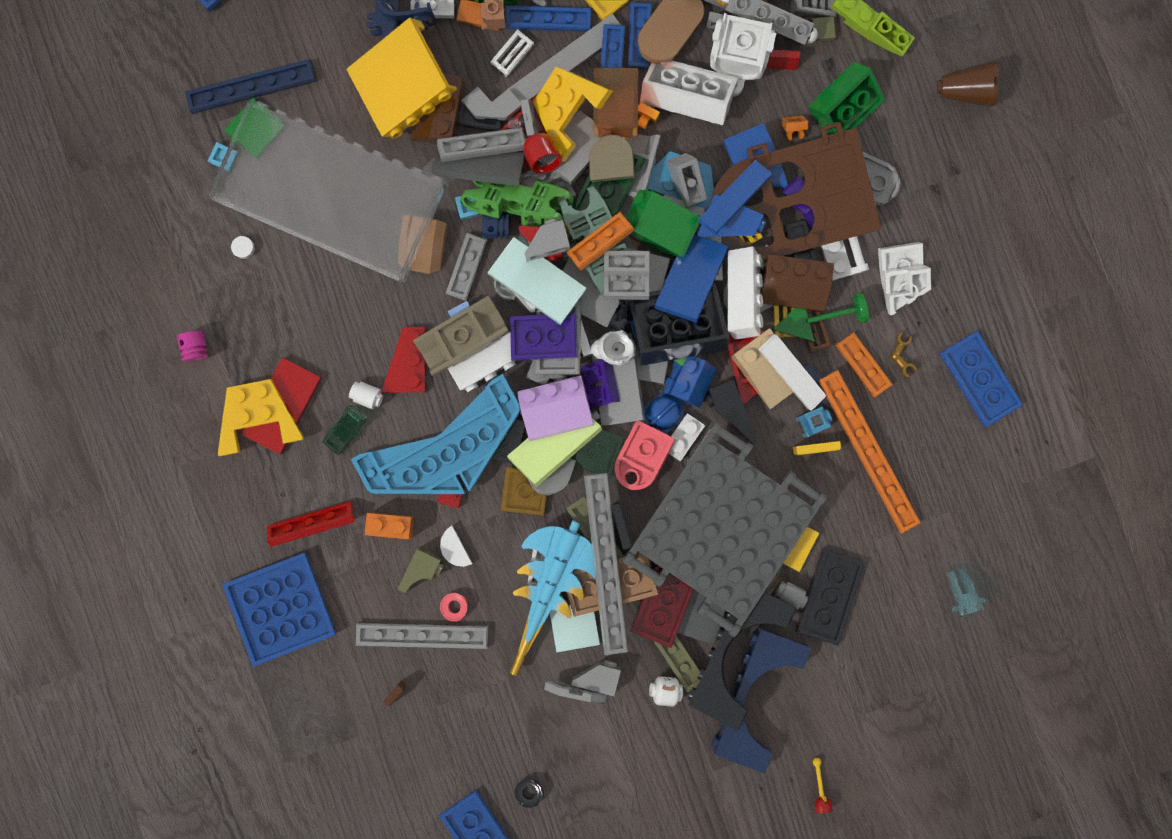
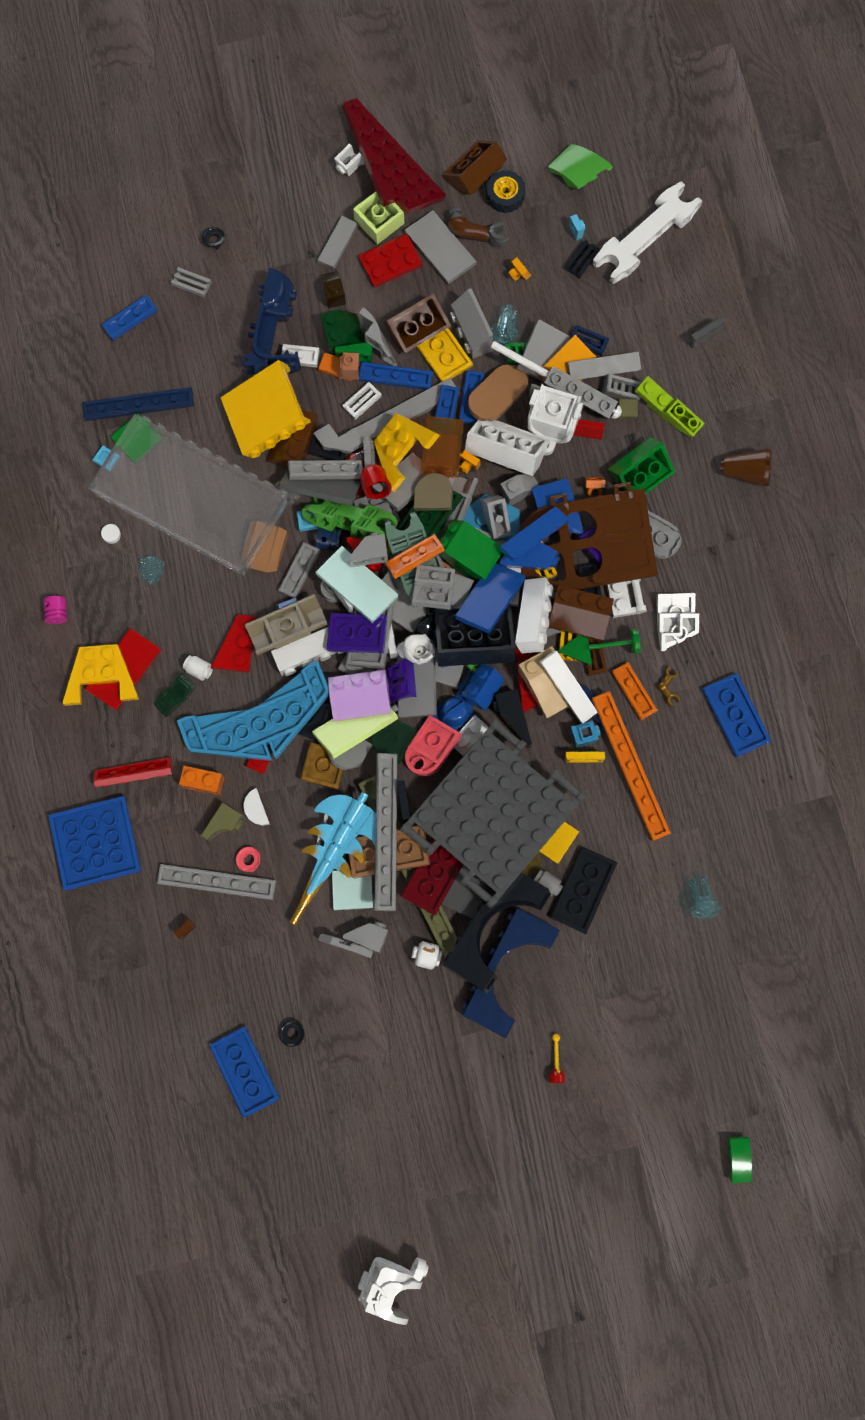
camera: 10 degrees right, 10 degrees down
(296, 283) = (151, 568): none -> clear light blue piece
(707, 140) = (518, 488): none -> light grey slope

